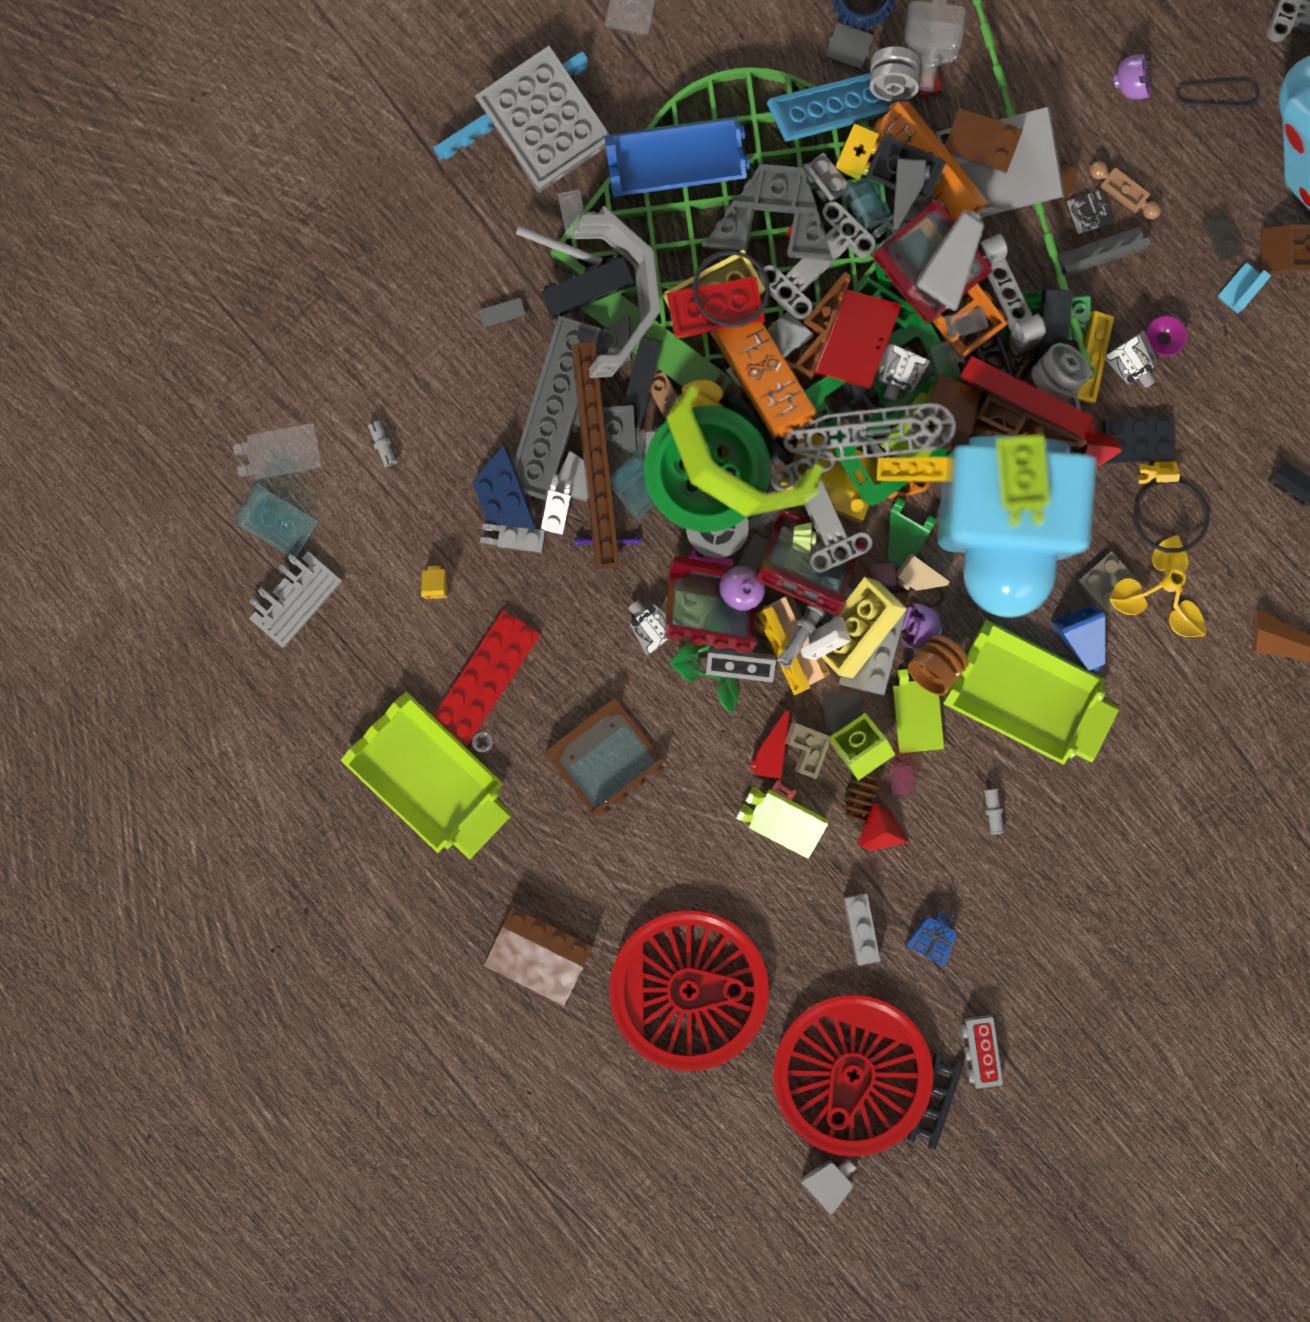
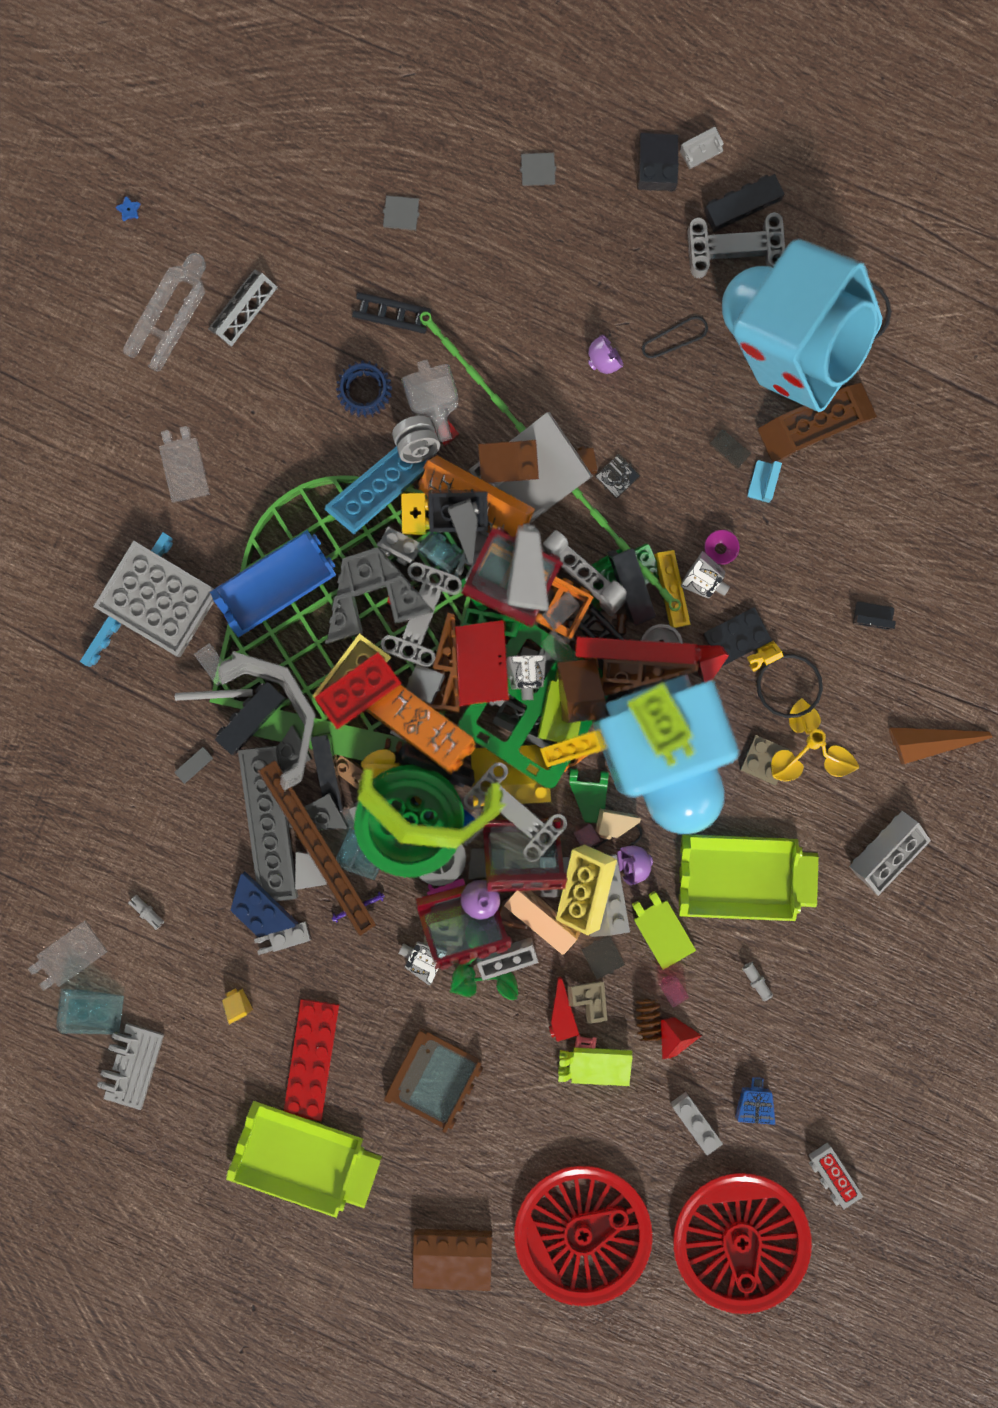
camera: 20 degrees left, 0 degrees up
(475, 743) = (337, 1110): clear bush -> none
(557, 506) = (305, 899): hinge -> none
(740, 254) = (371, 700): black piece -> none
(778, 639) = (539, 936): yellow plate -> none
(804, 538) = (511, 837): yellowish green piece -> none
(805, 627) = (544, 908): light grey pin -> none
(826, 639) = (564, 910): white panel -> none
(830, 1183) = (762, 1336): light grey torso -> none
(849, 46) = (371, 431): dark grey piece -> none
(858, 433) = (516, 742): light grey beam -> none
(861, 746) = (631, 980): lime brick -> none
(938, 665) = (662, 890): dark orange wheel -> none
(947, 1093) = (823, 1221): black bar -> none
(1061, 371) = (653, 616): light grey wheel -> none
(1084, 635) = (764, 810): slope -> none
(1102, 251) = (641, 502): dark grey fence -> none
(1125, 190) = (637, 446): medium nougat plate -> none
(1197, 740) = (890, 852): none -> light grey slope

